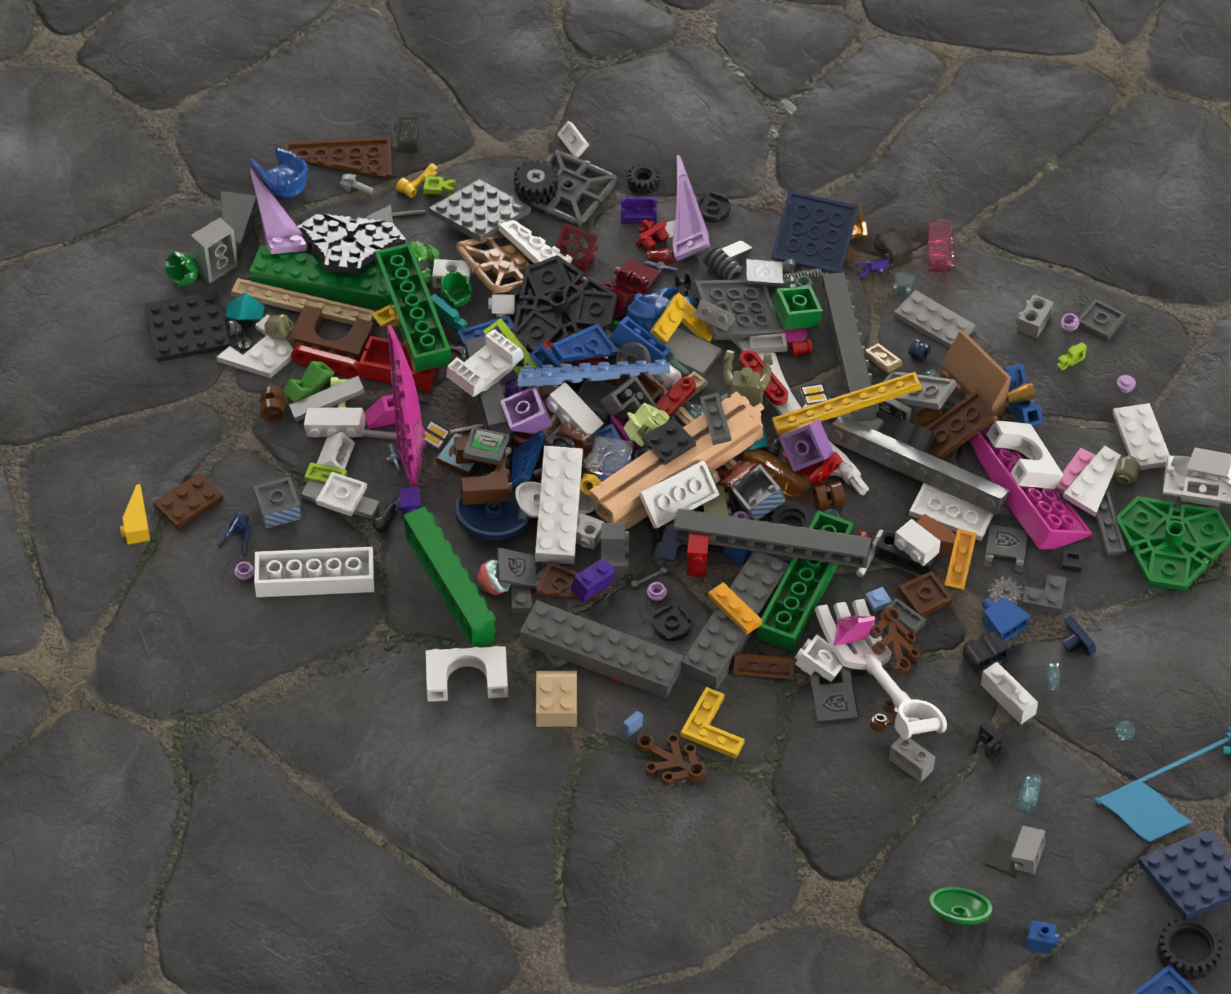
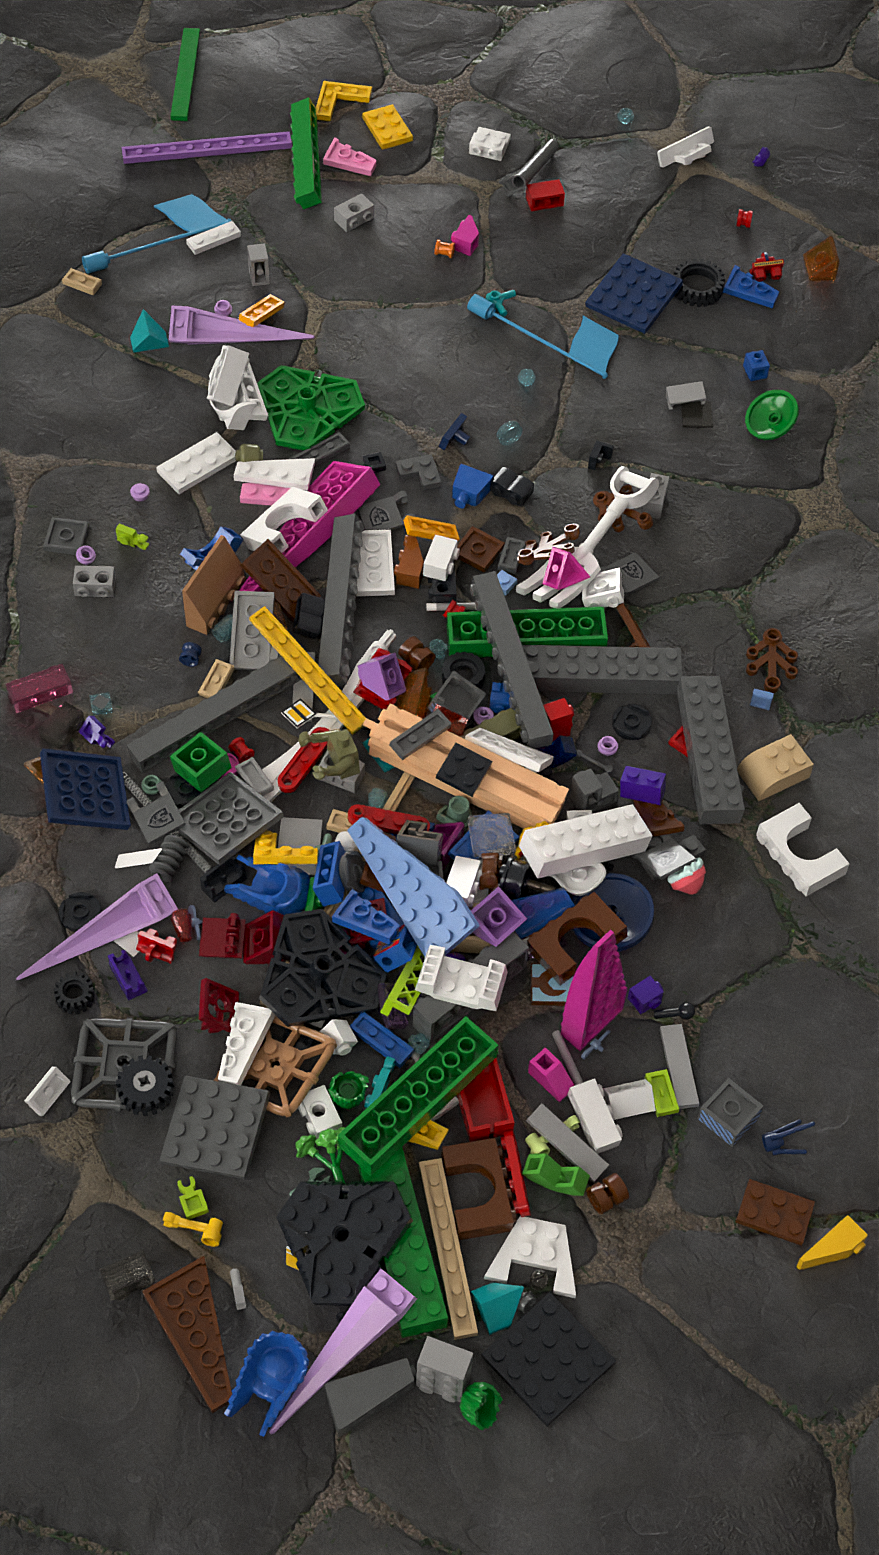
camera: 120 degrees left, 5 degrees up
(244, 567) = (825, 1100): lavender plate -> none
(278, 326) = (506, 1241): olive head -> none
(314, 571) = (788, 1032): white brick -> none
(341, 494) = (680, 1058): white plate -> none
(386, 214) = (262, 1239): light grey piece -> none
(437, 434) = (542, 1018): piece -> none
(449, 578) = (716, 908): green brick -> none
(486, 446) = (555, 937): tile -> none
(644, 416) = (442, 812): yellowish green piece -> none
(701, 732) = (729, 653): yellow plate -> none
(714, 315) = (261, 818): light grey hinge -> none
(735, 608) = (604, 658): light orange plate -> none
(932, 319) = (139, 661): light grey plate -> none
(1006, 585) = (432, 494): clear gear -> none
(1009, 693) = (545, 456): white piece -> none
(1022, 393) = (207, 542): pearl gold cone -> none
(1029, 792) = (623, 415): clear light blue hinge -> none

